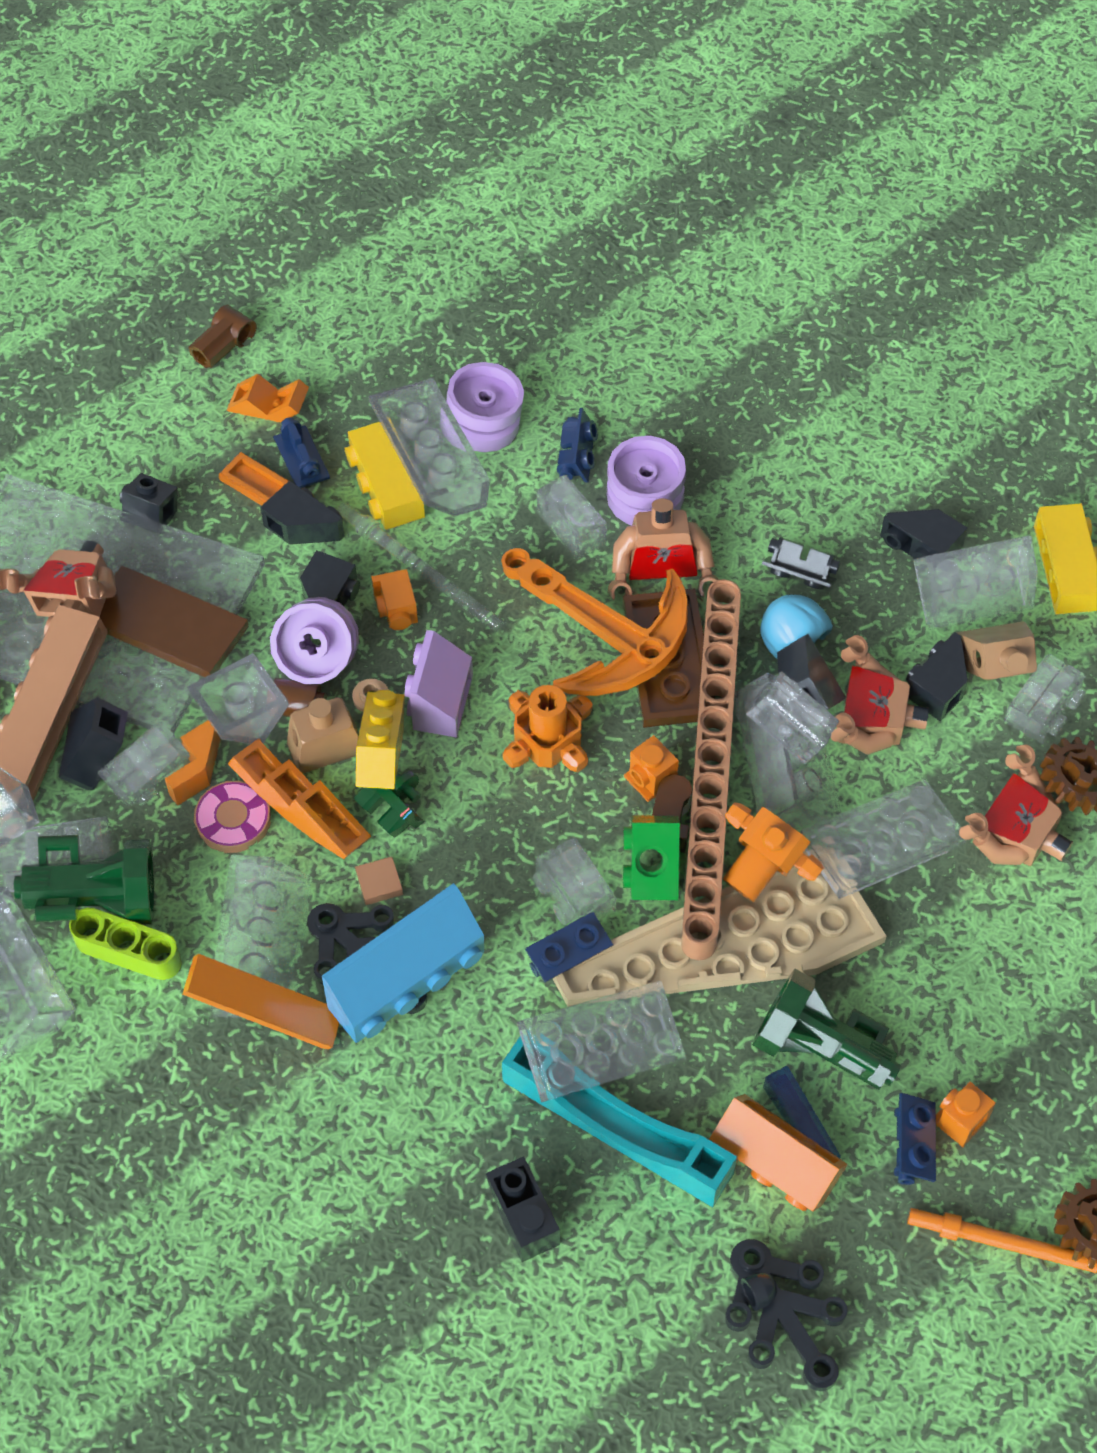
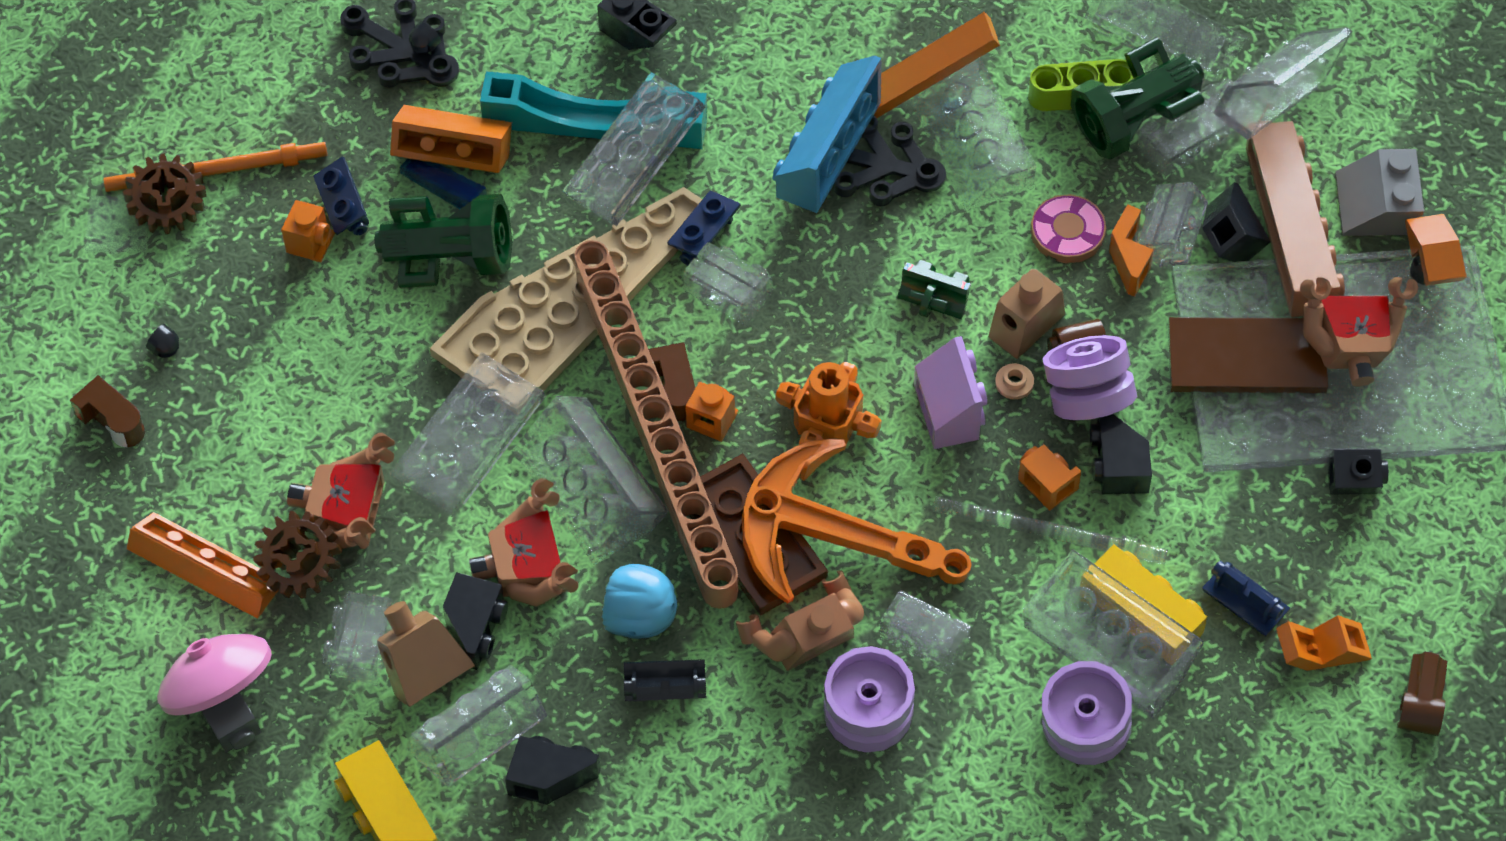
camera: 155 degrees right, 0 degrees up
(240, 701) = (1125, 298): clear slope -> none
(251, 478) = (1271, 553): orange tile -> none
(294, 797) = (1014, 256): orange slope -> none
(300, 518) = (1195, 521): black slope -> none
(379, 880) = (904, 228): nougat tile -> none
(380, 740) = (969, 306): yellow brick -> none
(579, 436) = (960, 713): dark blue hinge -> none
(659, 880) = (667, 316): brick -> none
(769, 848) = (561, 348): orange piece -> none
(792, 717) = (592, 460): clear brick -> none
(808, 669) = (597, 529): black slope -> none

